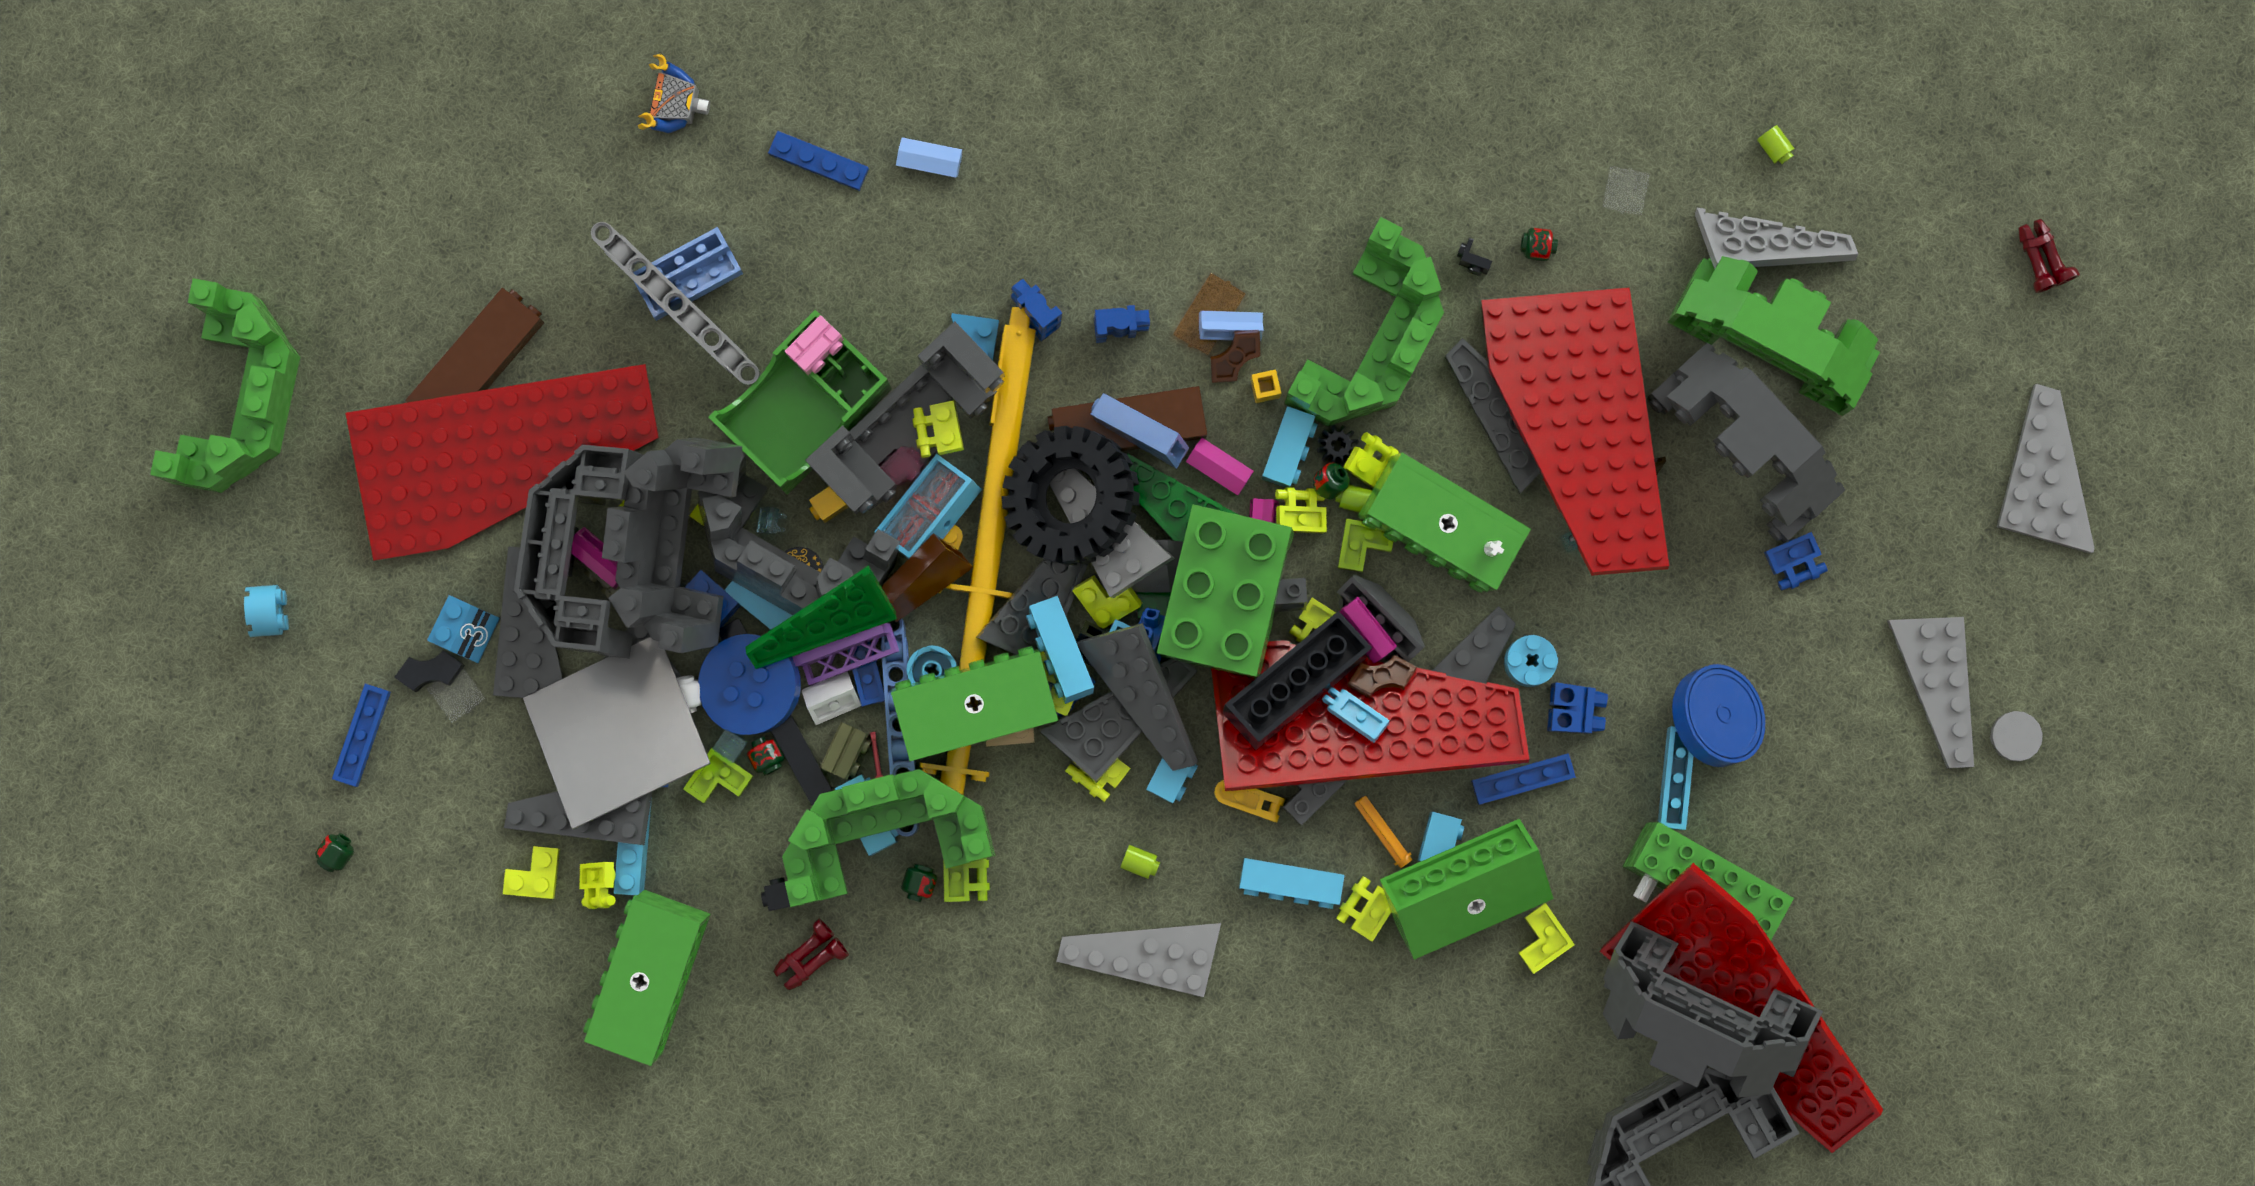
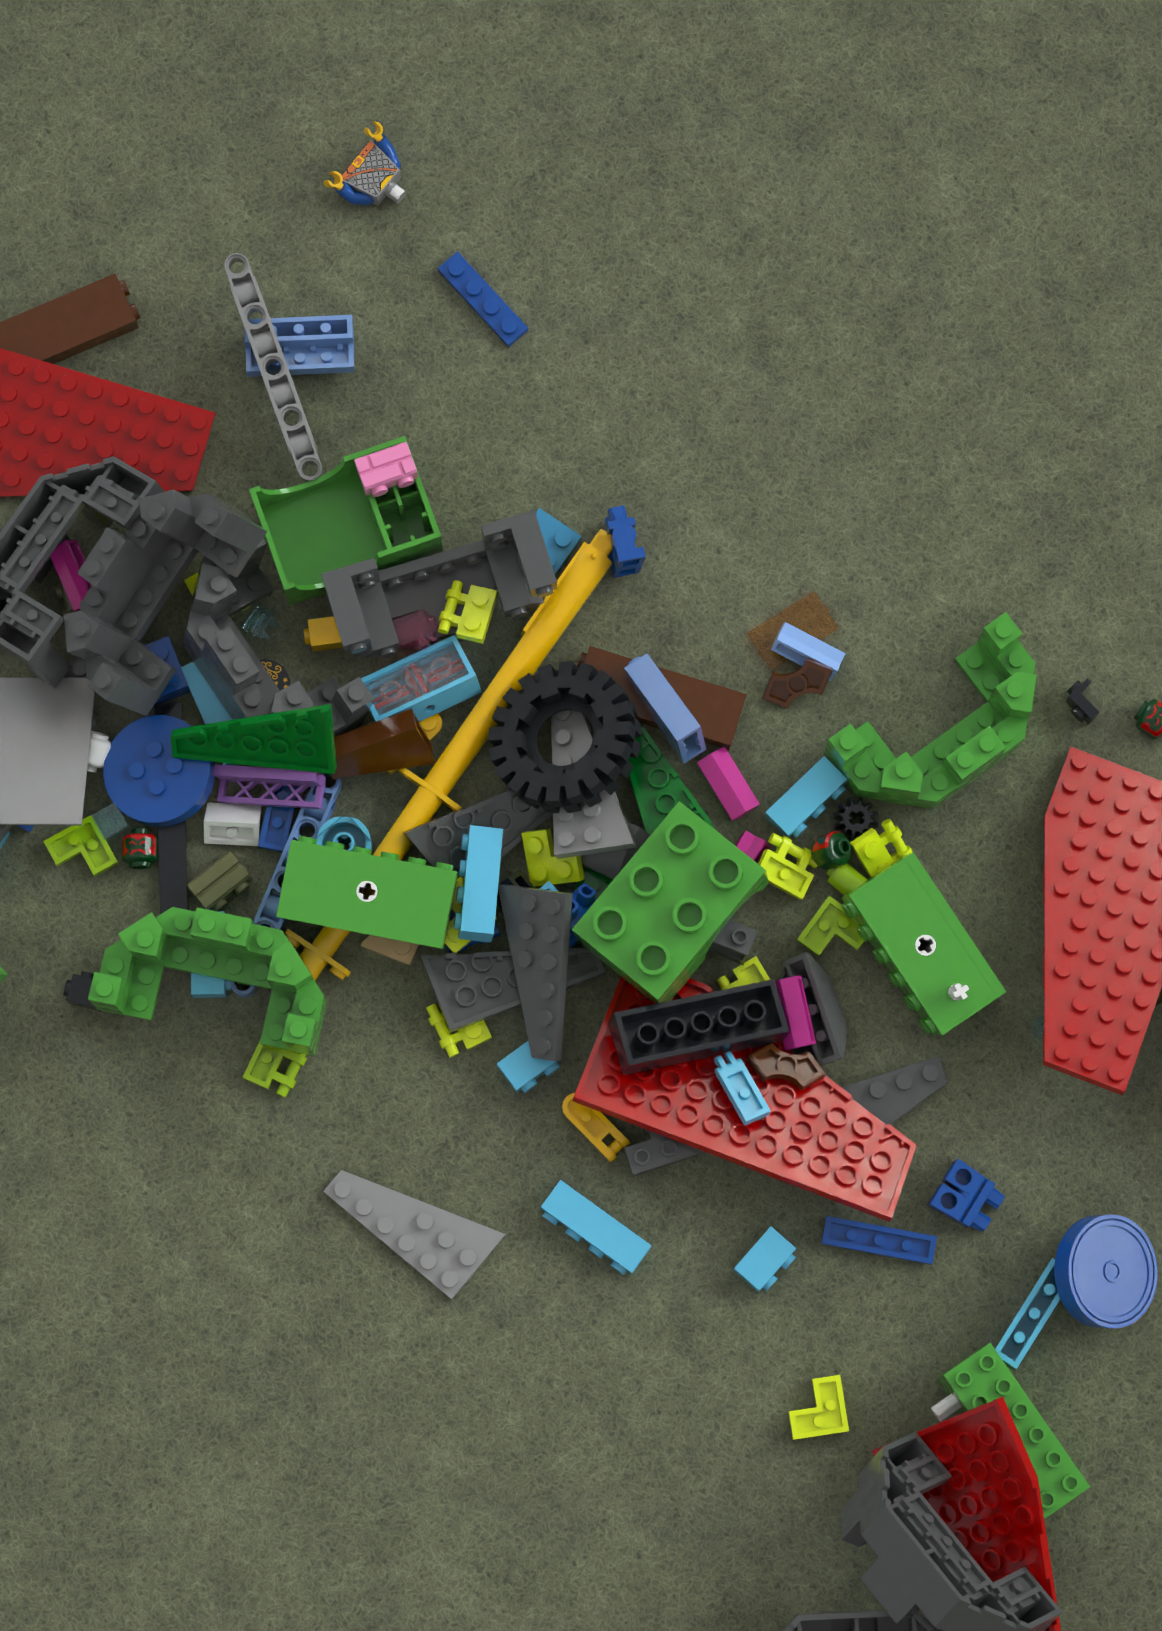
camera: 25 degrees right, 5 degrees down
(833, 950) = (65, 1061): dark red piece -> none
(876, 756) = (249, 897): coral hinge -> none
(919, 882) = (227, 1046): dark green head -> none
(929, 157) = (592, 347): light blue piece -> none
(1120, 322) = (699, 595): blue hips -> none
(1140, 862) = (455, 1134): lime brick -> none
(1265, 386) = (812, 726): yellow brick -> none
(1373, 914) = (662, 1300): neon yellow plate -> none
(1383, 832) = (712, 1224): light orange axle -> none
(1467, 888) = (766, 1318): bright green piece -> none
(1492, 412) = (1026, 853): dark grey wing -> none
(1545, 661) = (935, 1139): medium azure brick -> none

